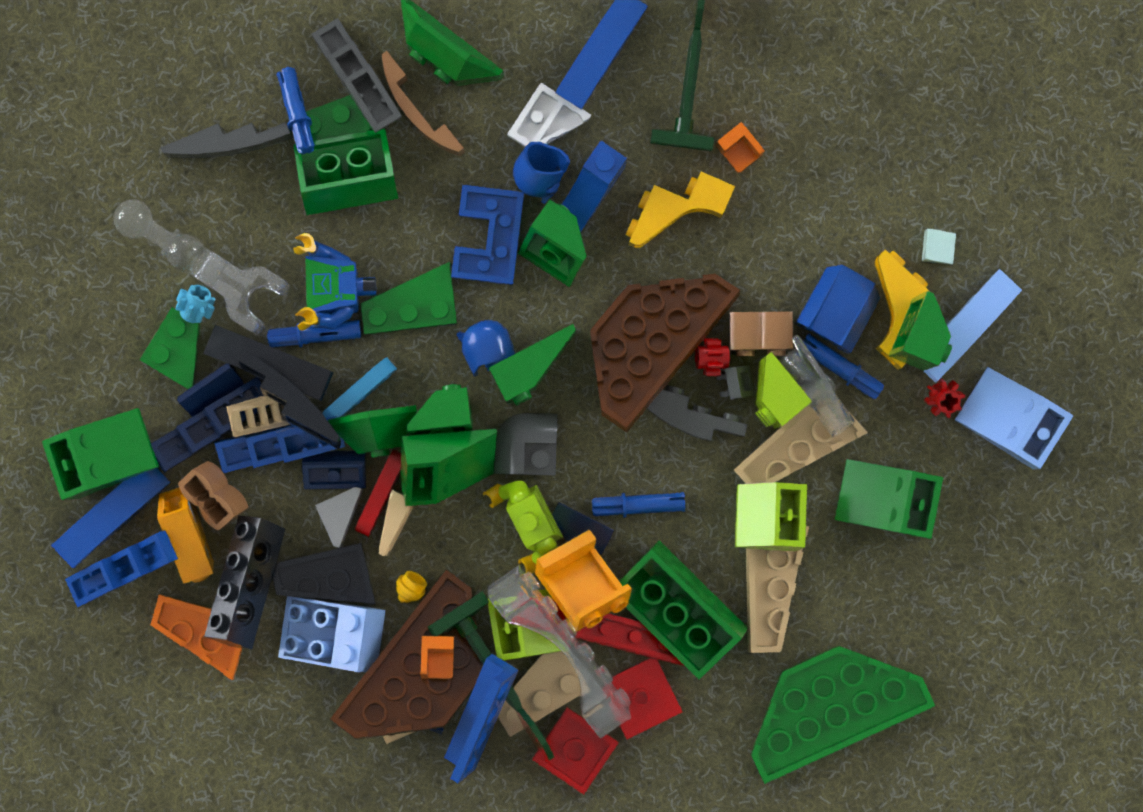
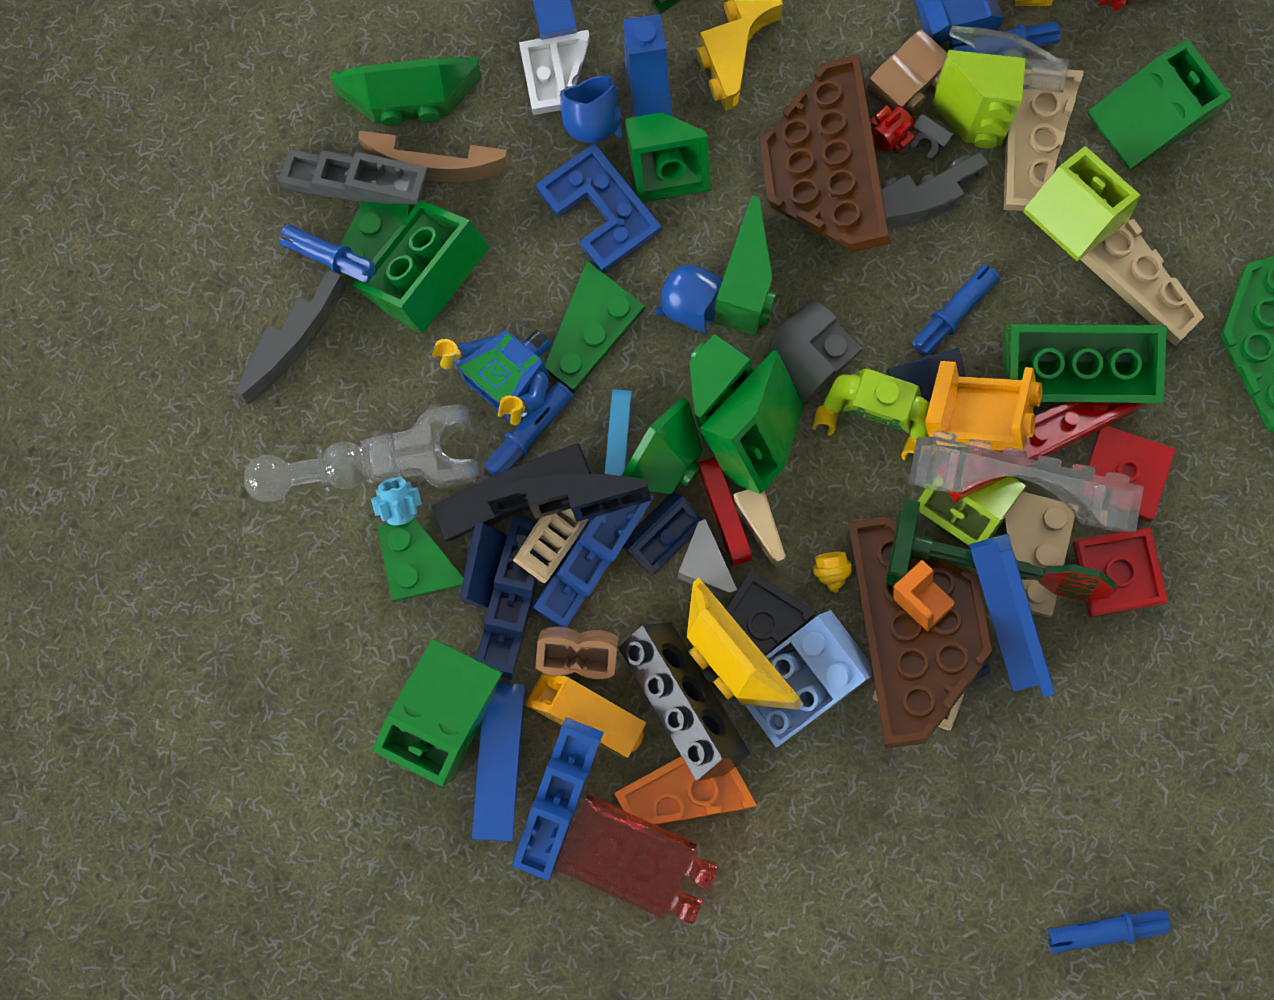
camera: 40 degrees left, 10 degrees down
(134, 644) = (634, 860): none -> clear red tile
(297, 583) = (733, 655): none -> yellow wedge

